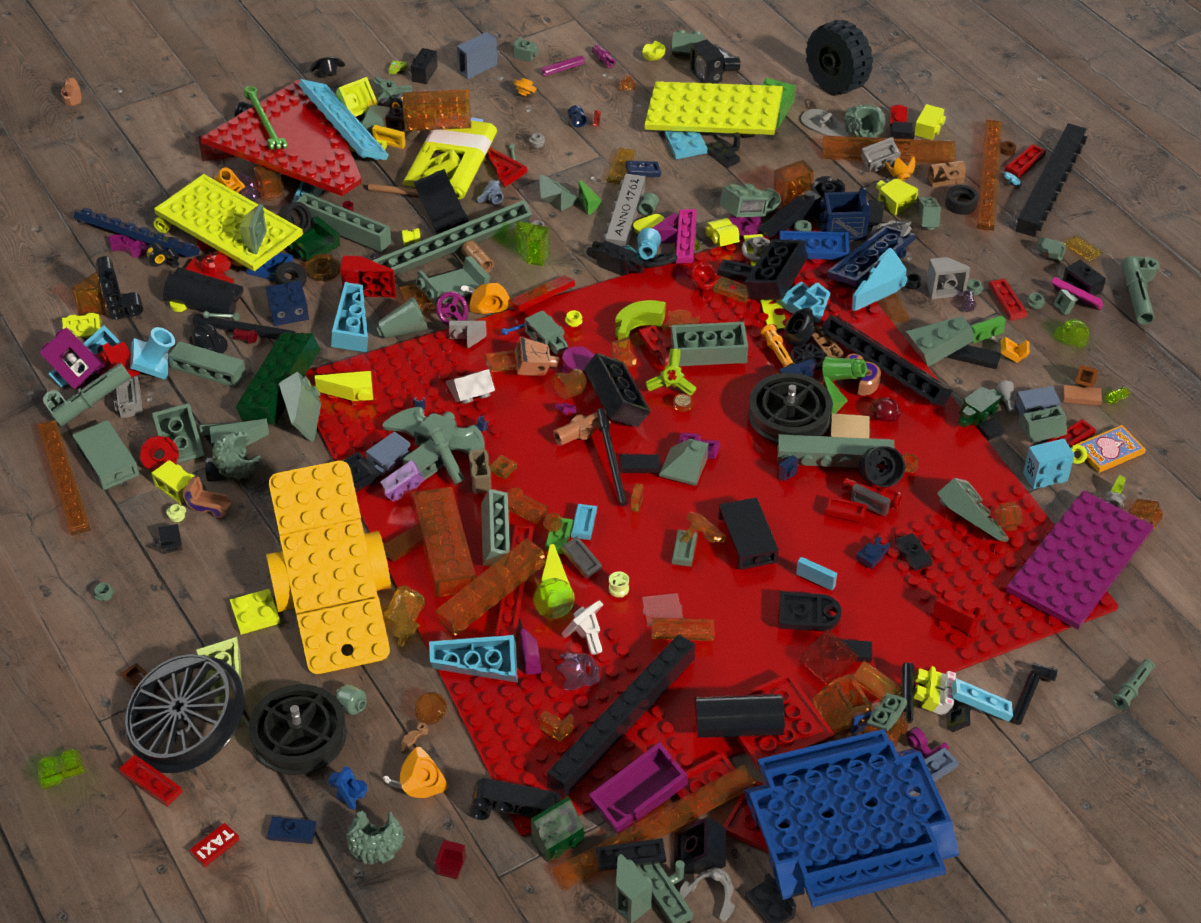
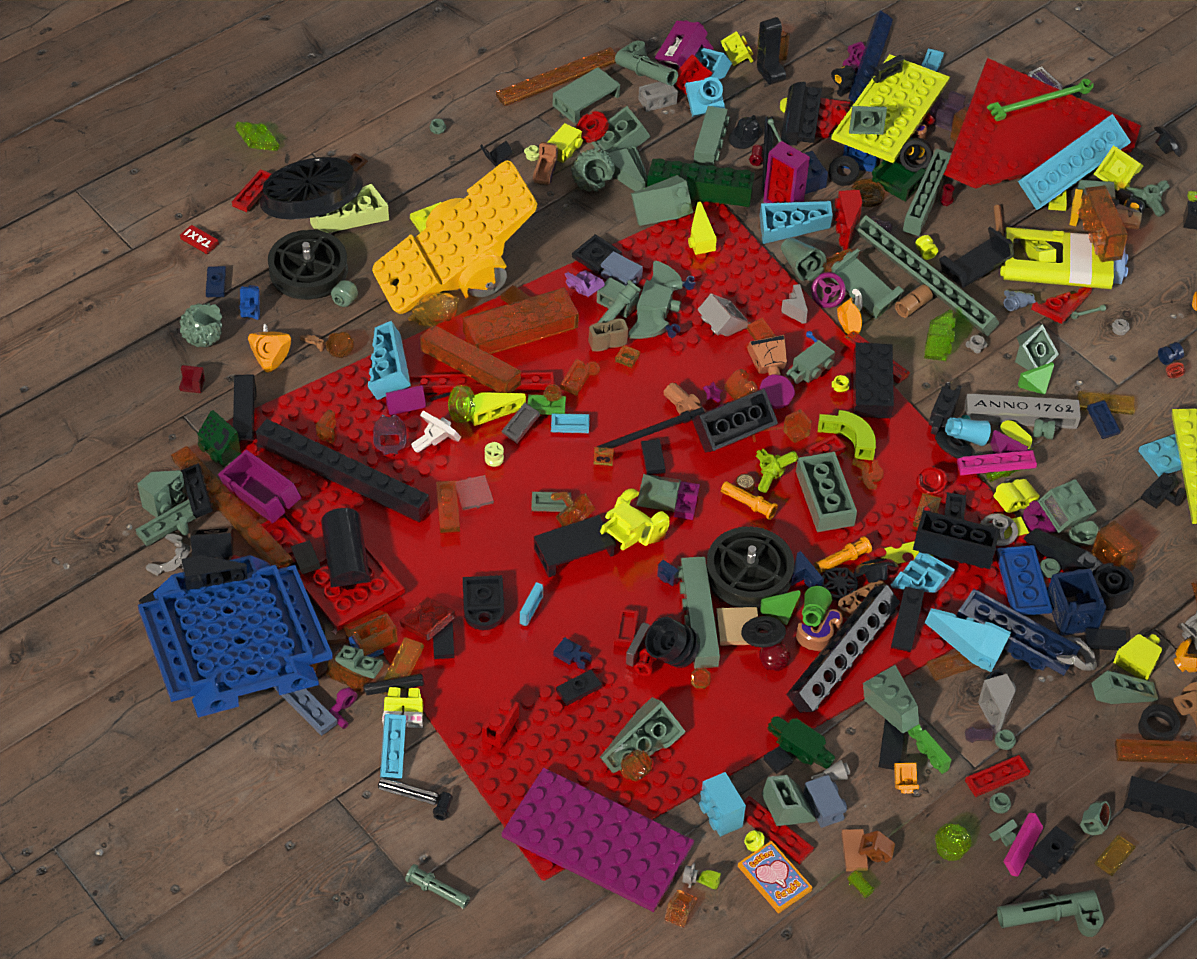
camera: 80 degrees right, 5 degrees up
(155, 194) = (932, 59): none -> medium azure tile
(183, 208) = (888, 68): none -> black tile
(205, 127) = (1042, 75): none -> clear tile
(231, 180) = (946, 101): light orange piece -> none
(312, 301) = (786, 175): none -> magenta brick
(495, 527) = (541, 353): sand green brick -> none
(580, 292) = (873, 380): none -> black brick
(710, 396) = (757, 503): none -> light orange pin
(735, 481) = (631, 525): none -> neon yellow piece
(741, 753) = (305, 557): none -> pearl dark grey tile
(781, 825) = (210, 571): none -> black slope
(855, 316) = (907, 619): none -> black slope
(874, 414) = (751, 629): none -> black wheel
(958, 716) = (373, 732): black plate -> none

